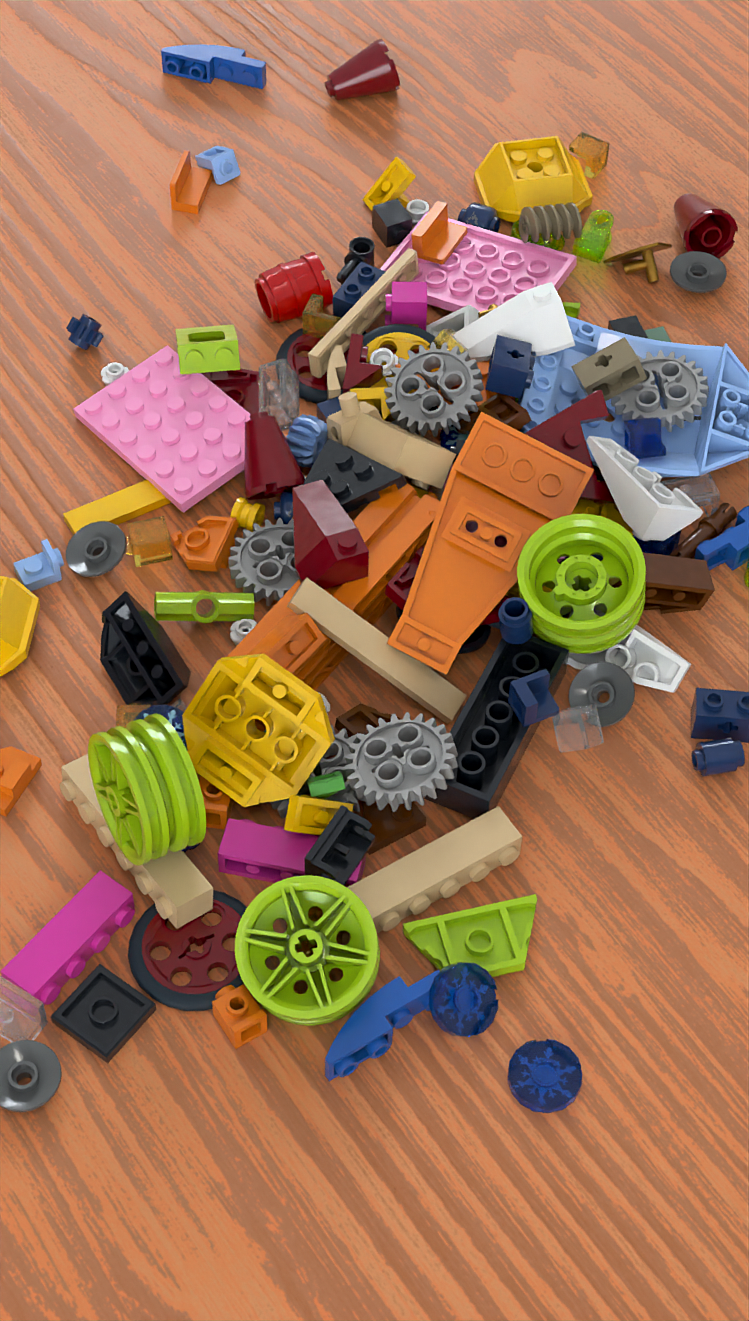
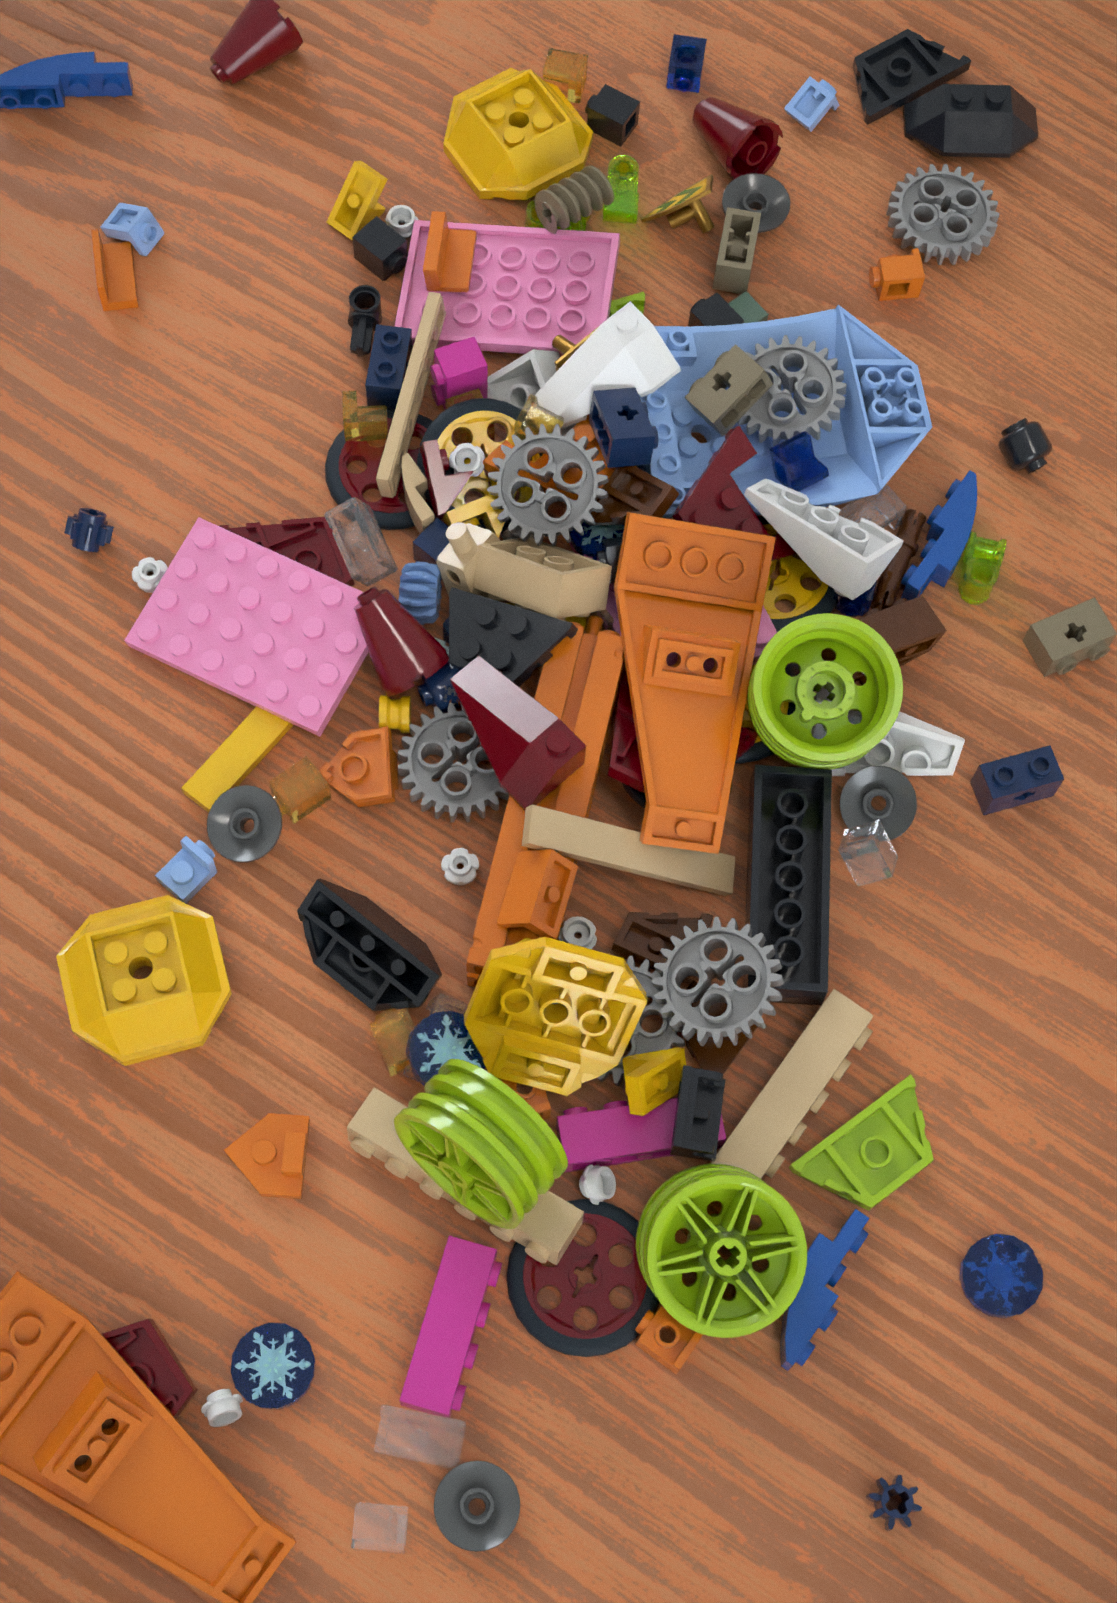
camera: 25 degrees left, 15 degrees up
(103, 1013) = (522, 1393): black tile -> none
(182, 606) = (383, 861): lime piece -> none
(207, 349) = (245, 492): lime window -> none
(239, 883) = (597, 1183): none -> white plate
(289, 285) = (311, 386): red piece -> none
(326, 785) = (650, 1039): bright green tile -> none
(372, 1197) = (882, 1497): none -> dark blue gear
(463, 999) = (891, 1229): clear blue tile -> none
(480, 216) = (480, 208): dark blue head -> none
(515, 621) = (772, 753): dark blue brick -> none
(532, 699) = (824, 852): dark blue panel -> none
(612, 188) = (612, 114): none -> black brick
(665, 295) = (736, 250): none -> dark tan brick
(686, 171) = (686, 63): none -> clear blue brick
(718, 756) = (1026, 833): dark blue brick -> none

